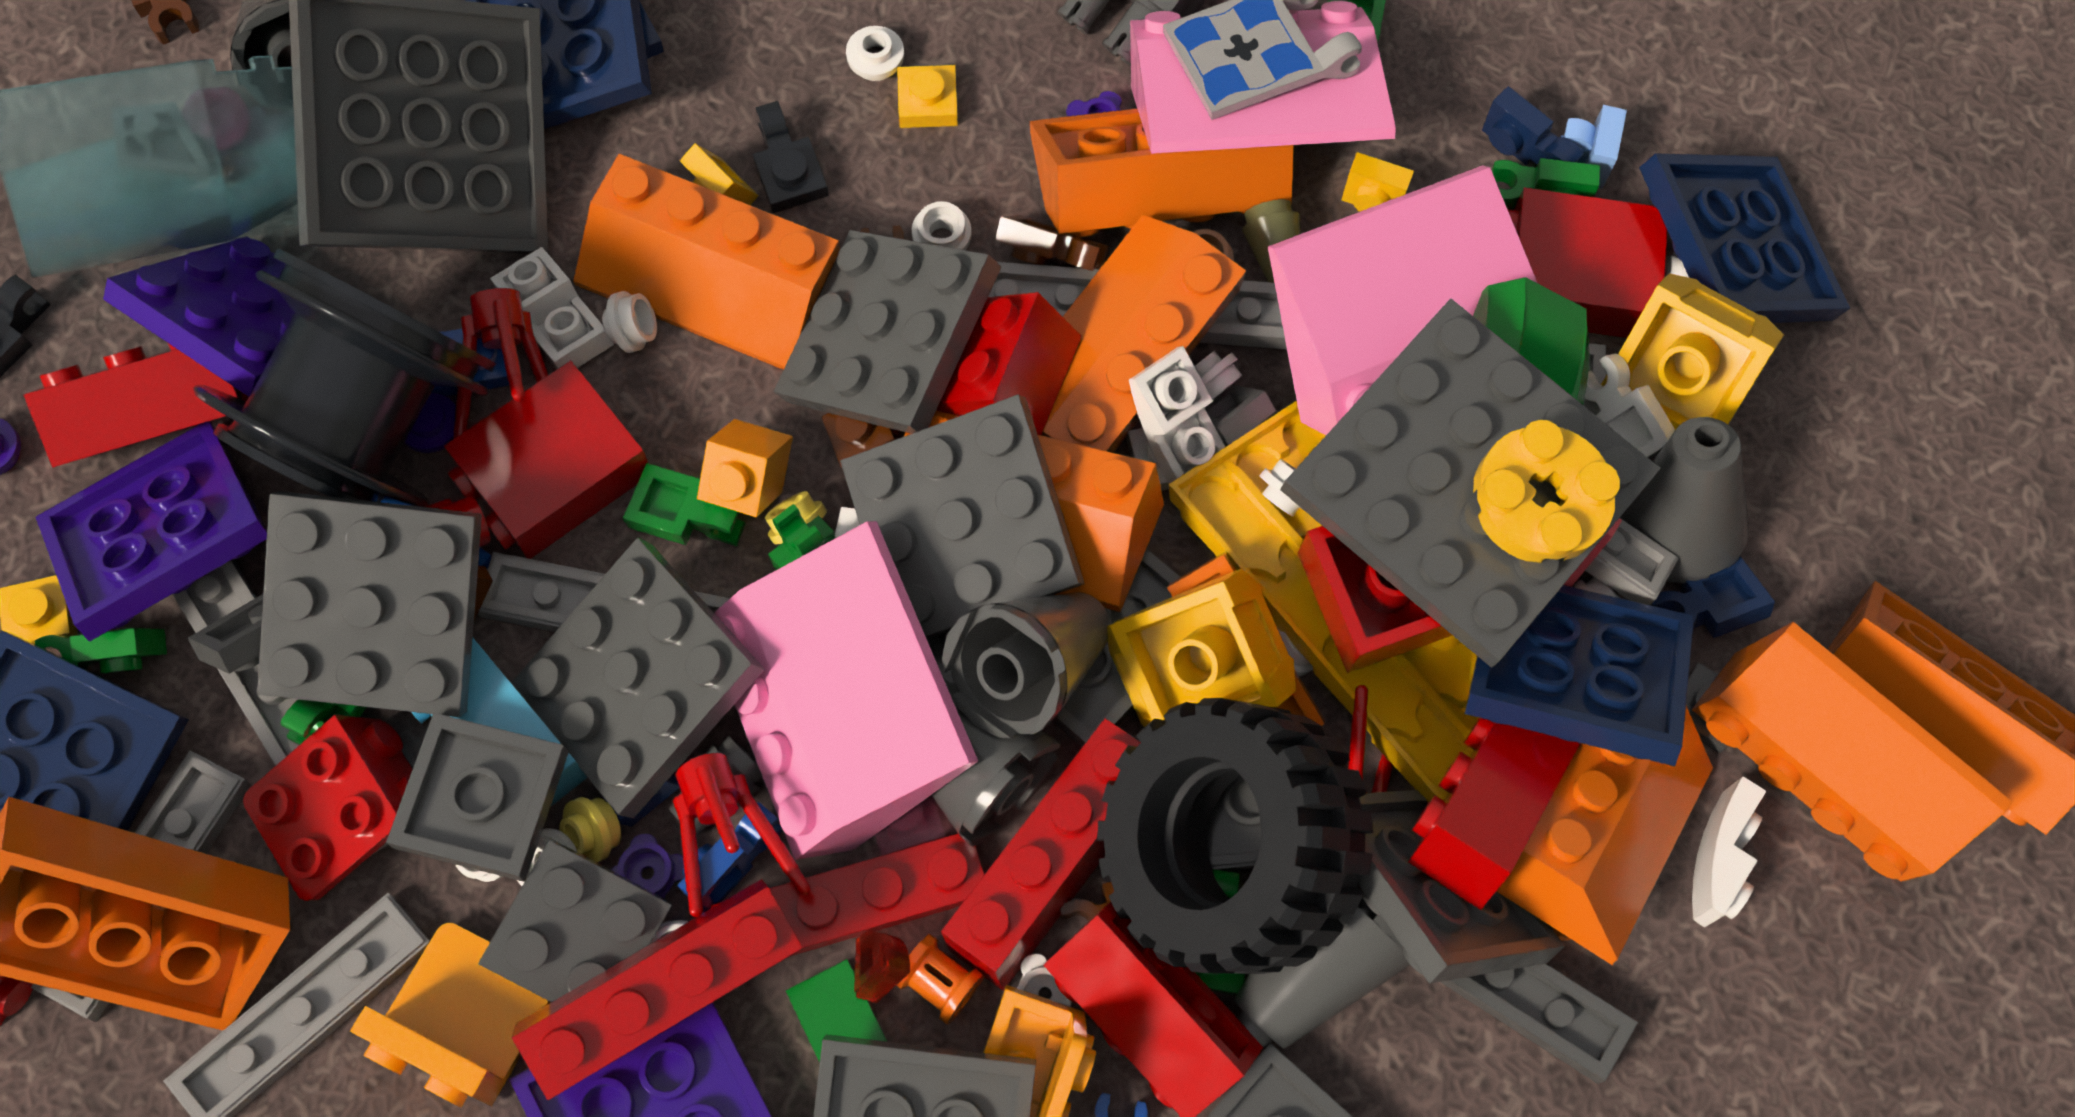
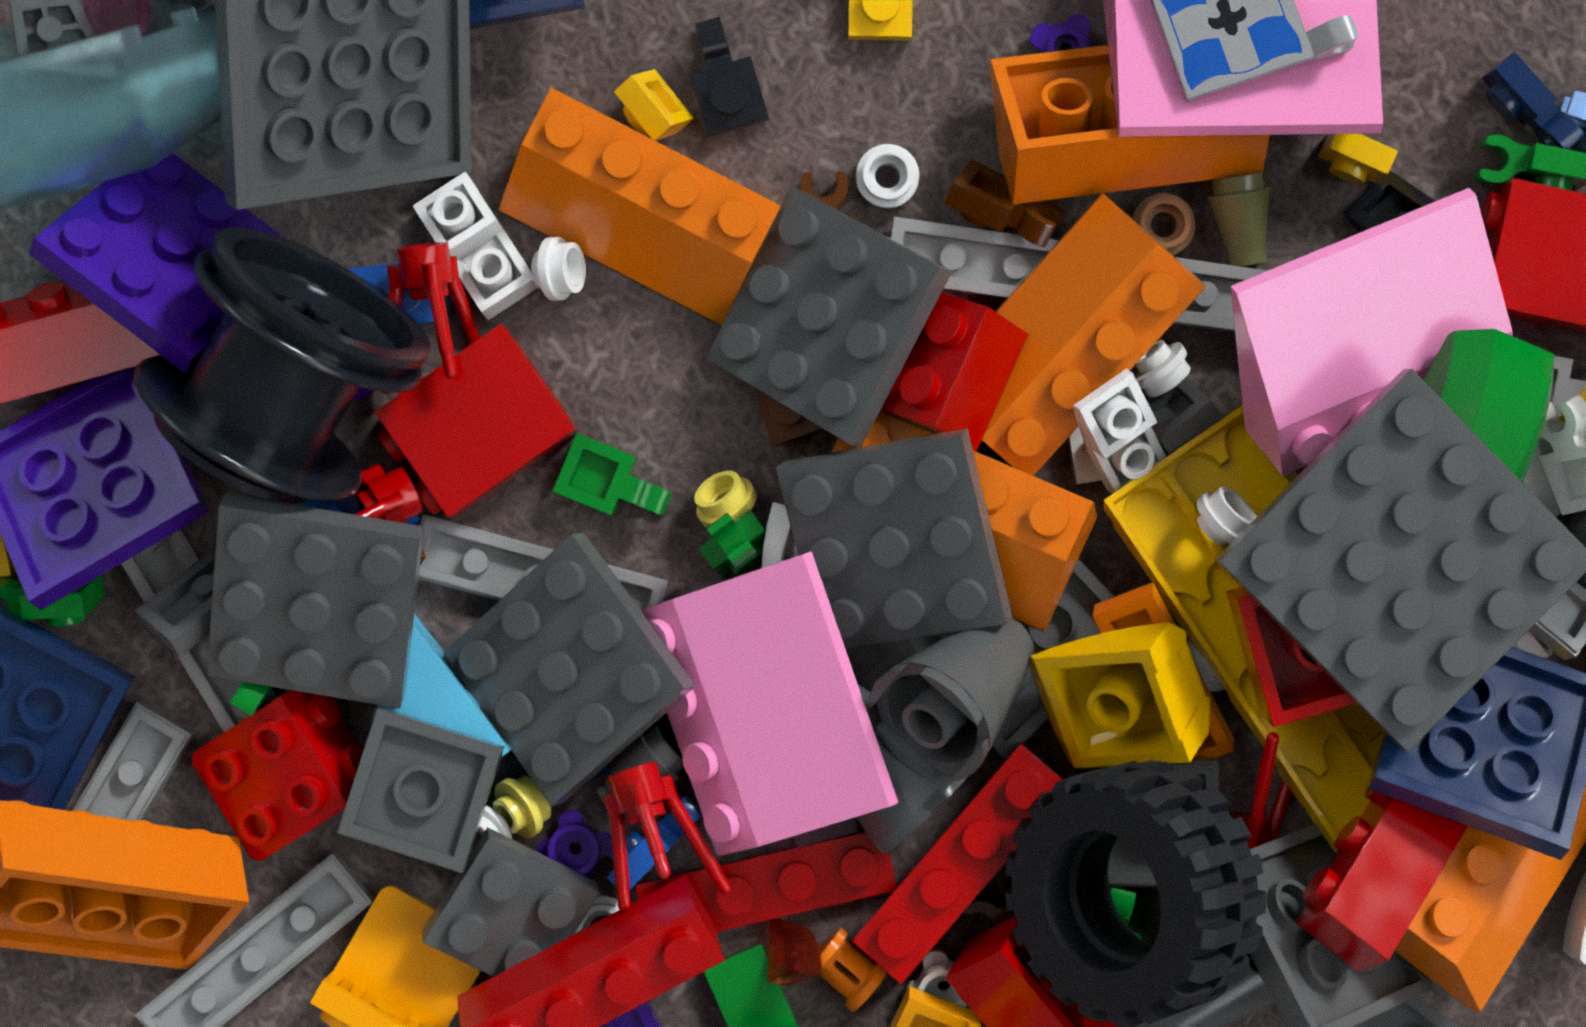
camera: 10 degrees right, 20 degrees up
(744, 467) = (676, 448): light orange brick -> none
(1568, 463) = (1436, 599): yellow plate -> none

